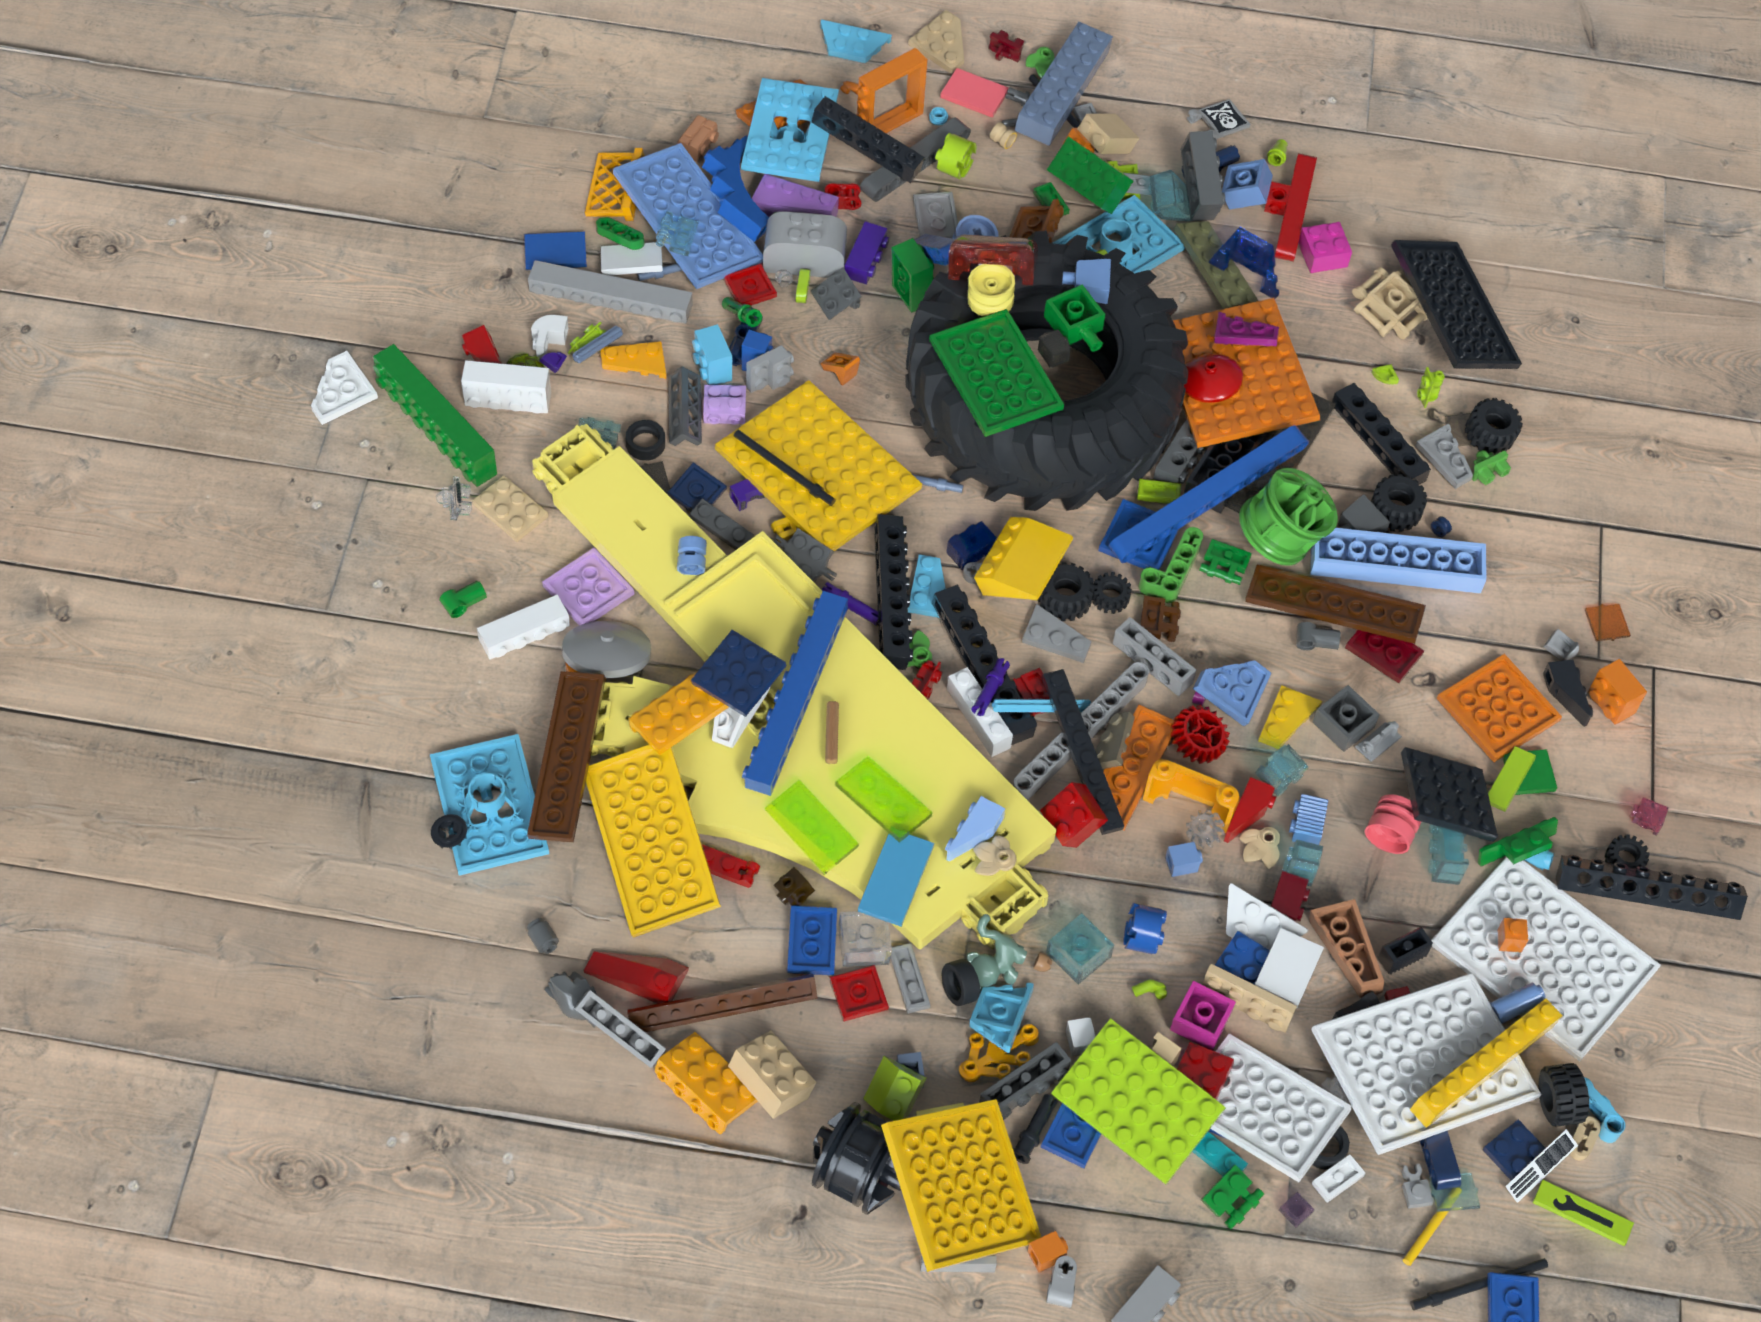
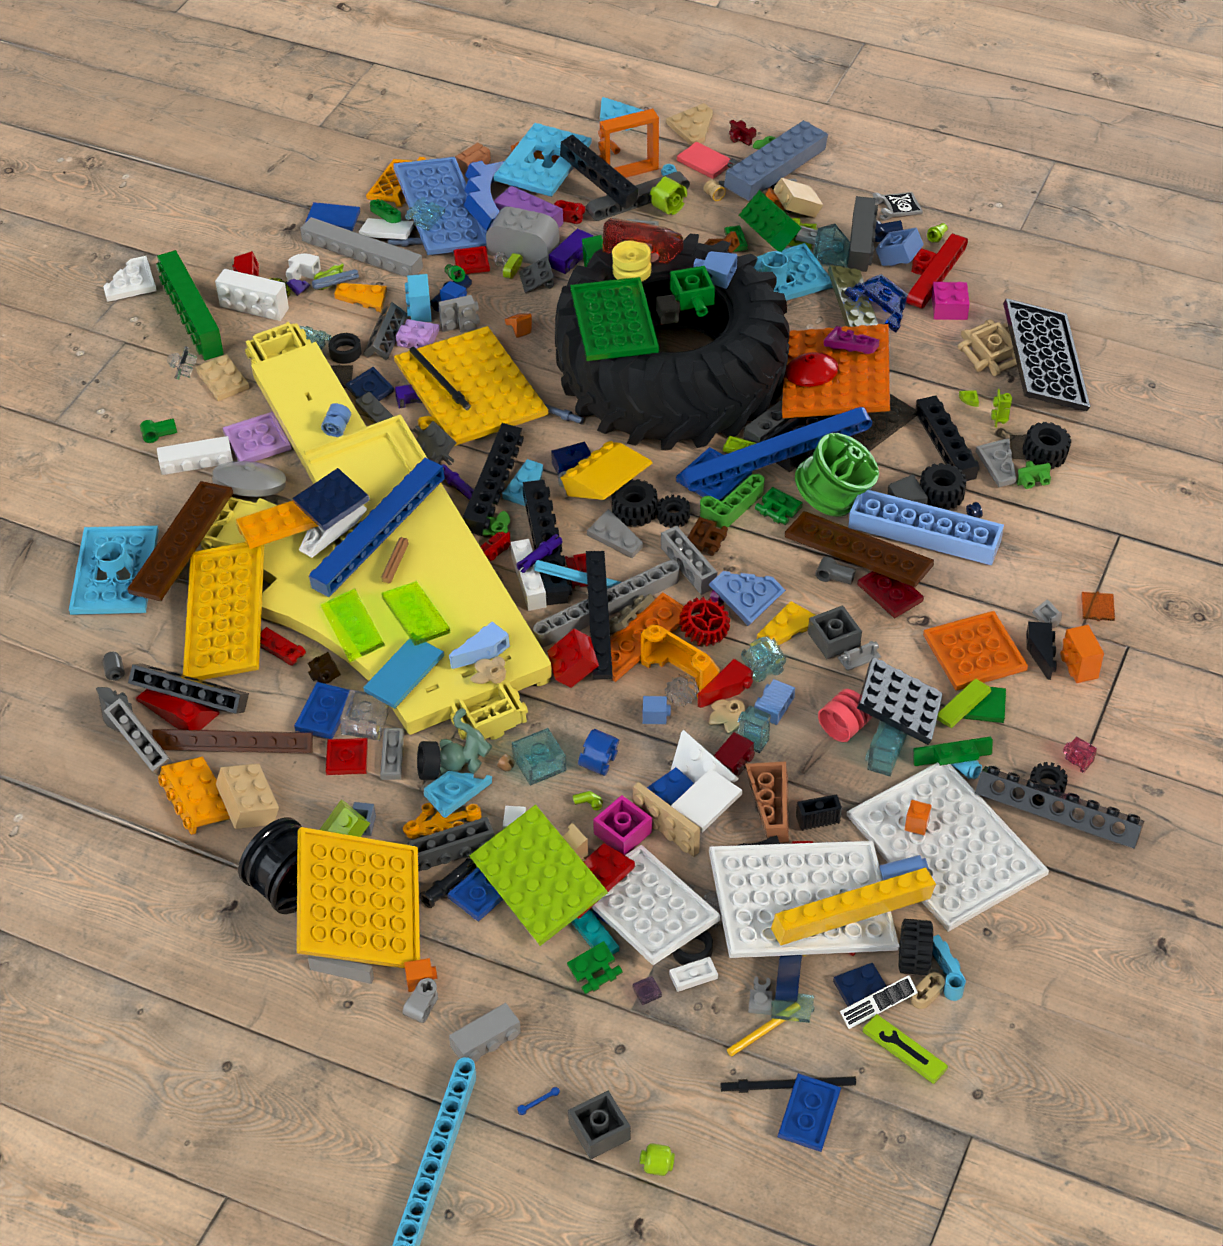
camera: 20 degrees right, 10 degrees down
(445, 823) = (72, 574): black gear -> none
(646, 948) = (188, 688): none -> black brick

